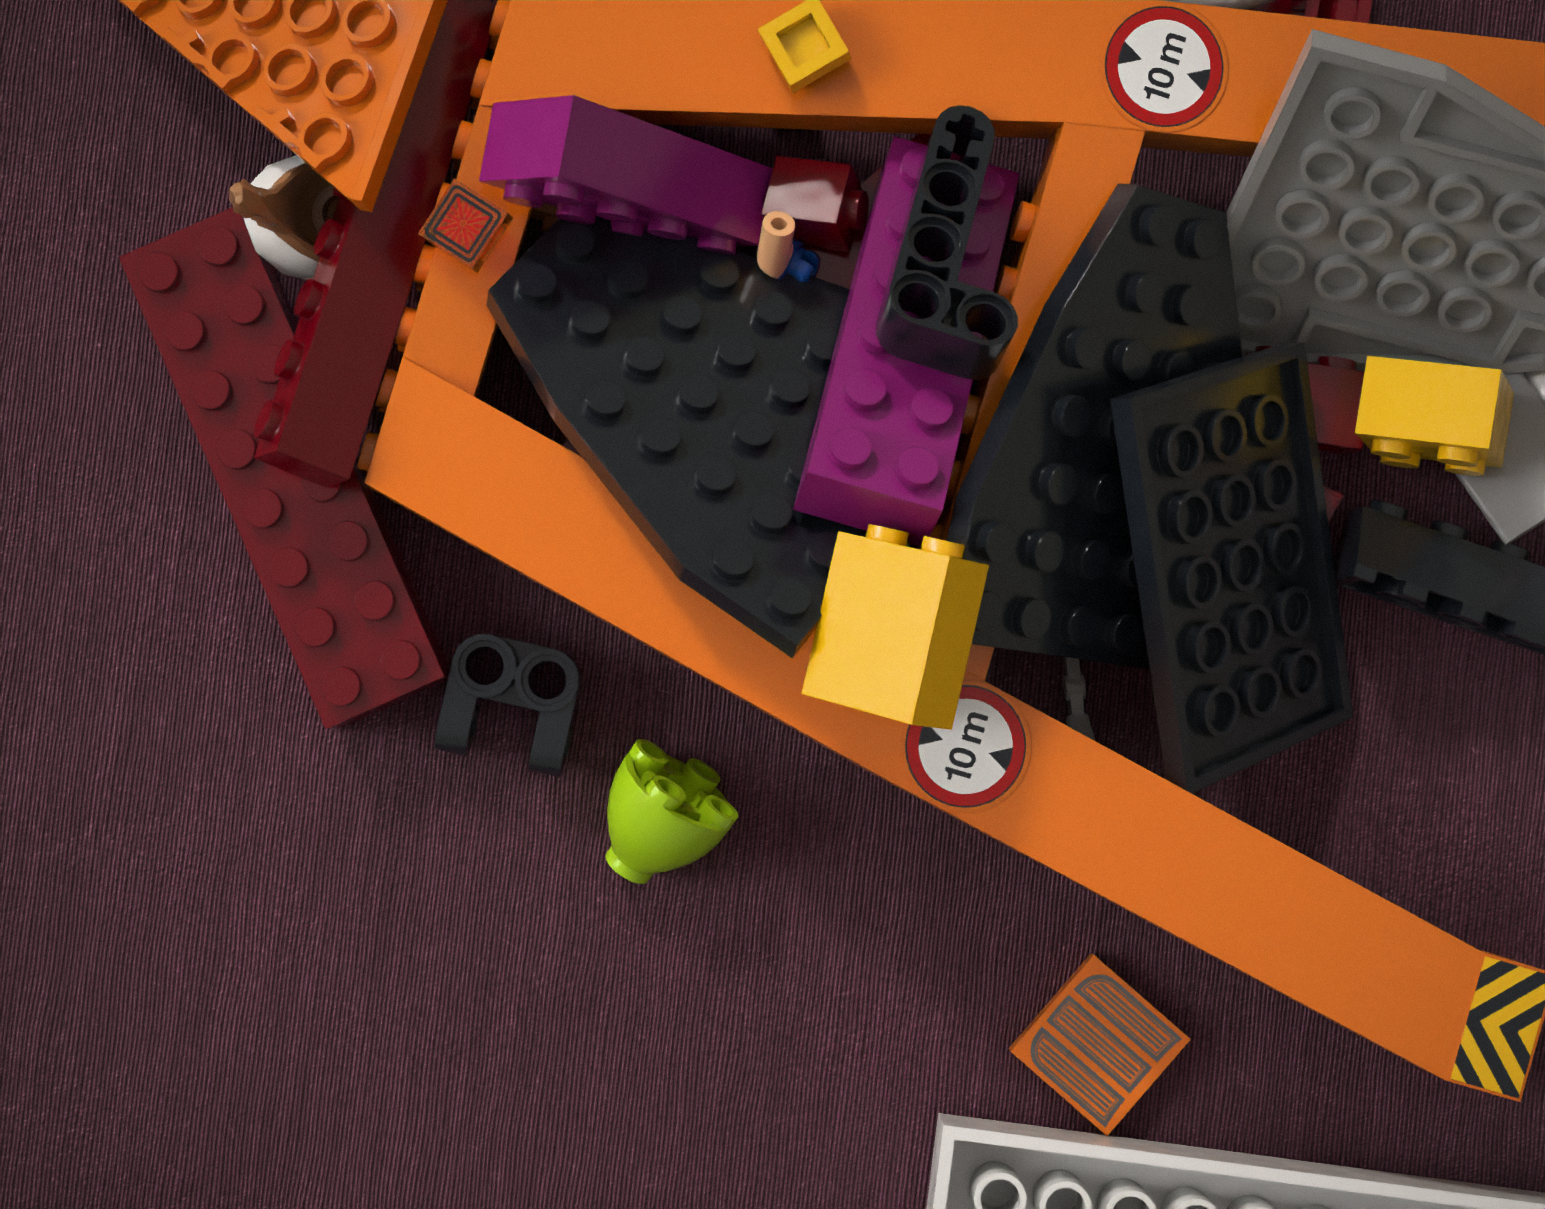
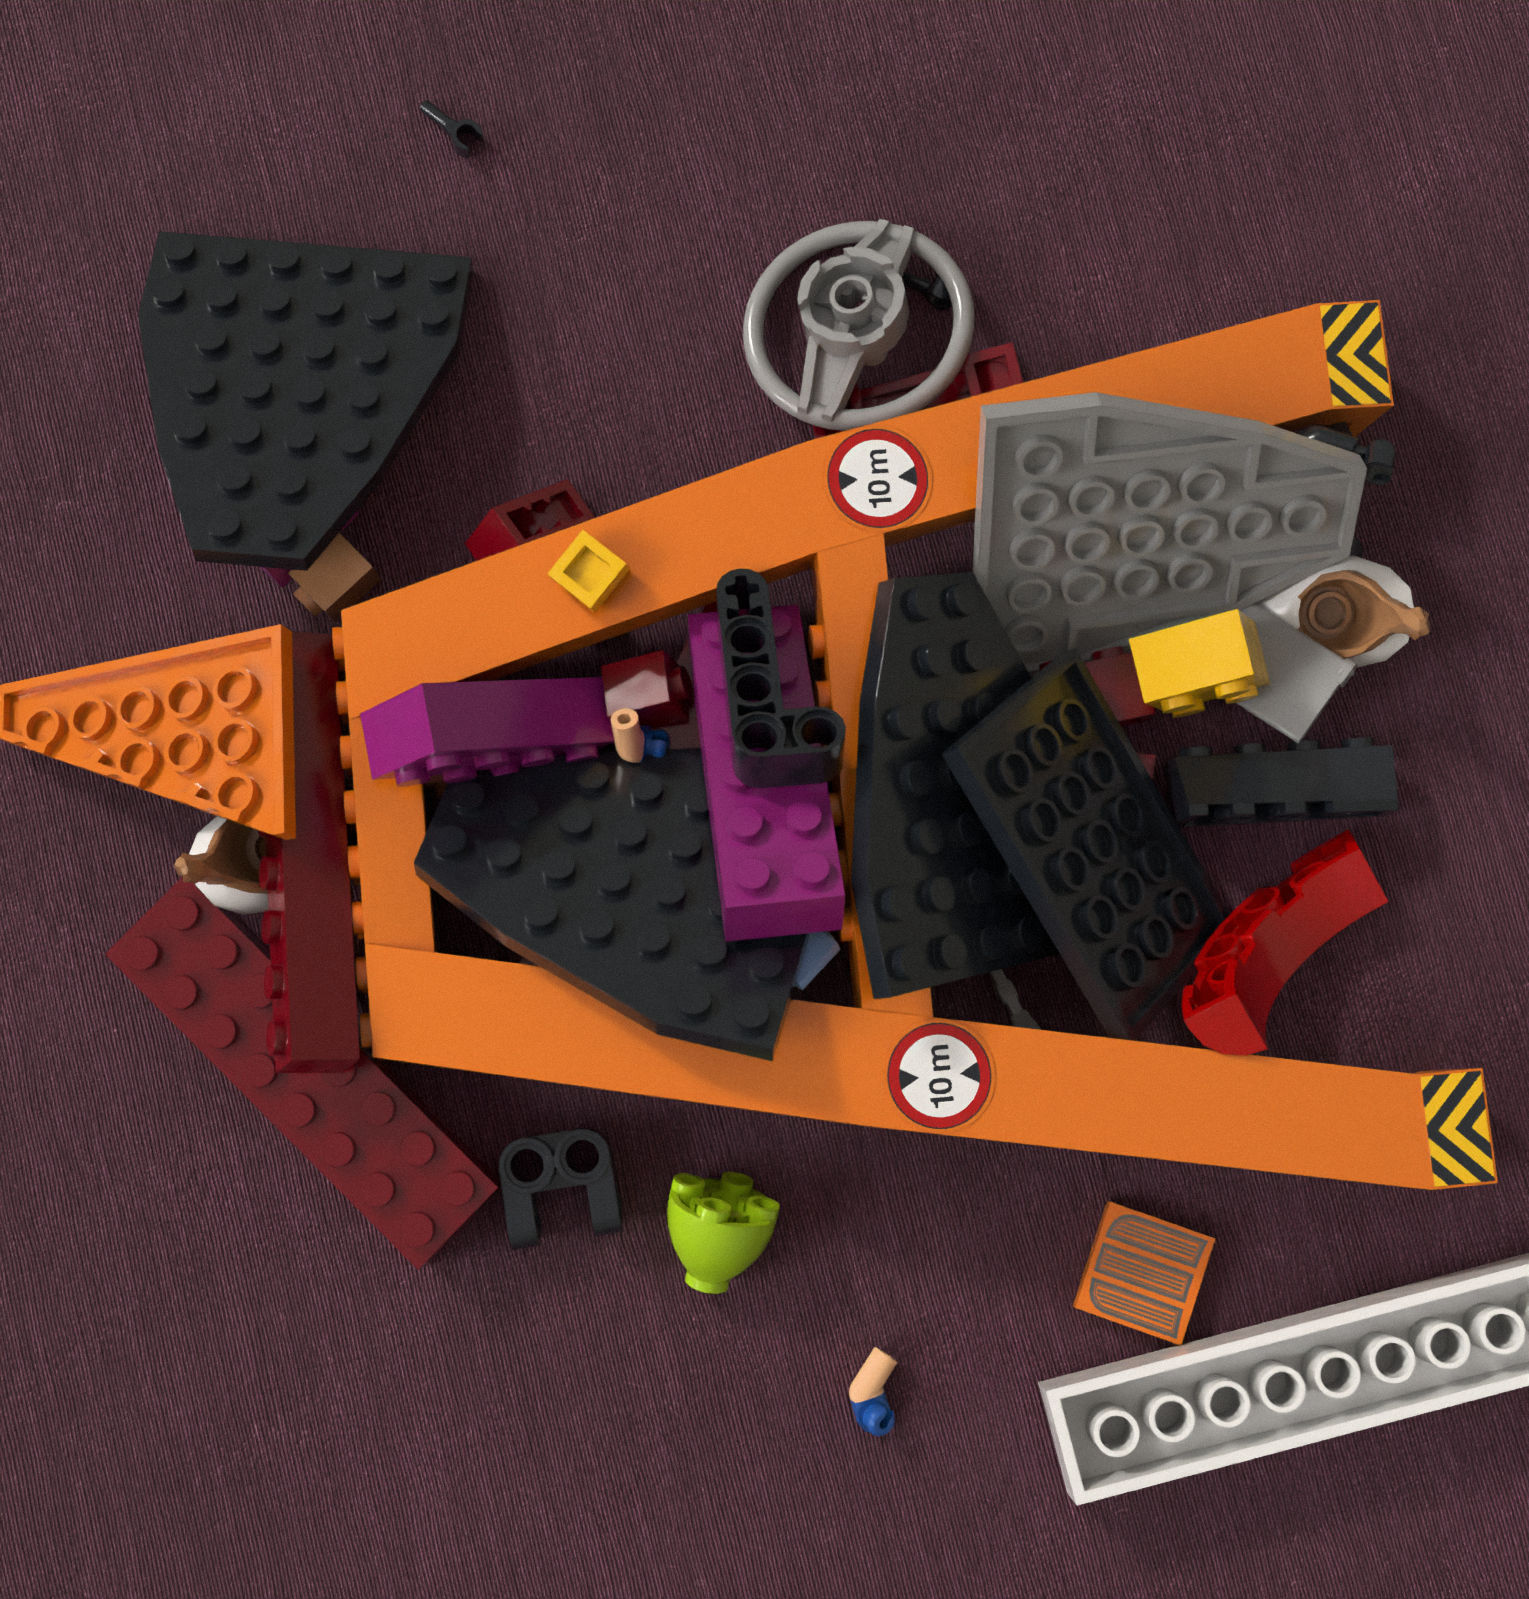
camera: 20 degrees left, 5 degrees down
(465, 225) = (375, 819): tile -> none
(752, 1054) = (868, 1395): none -> arm
(896, 627) = (845, 1003): yellow brick -> none
(1384, 744) = (1270, 939): none -> red brick

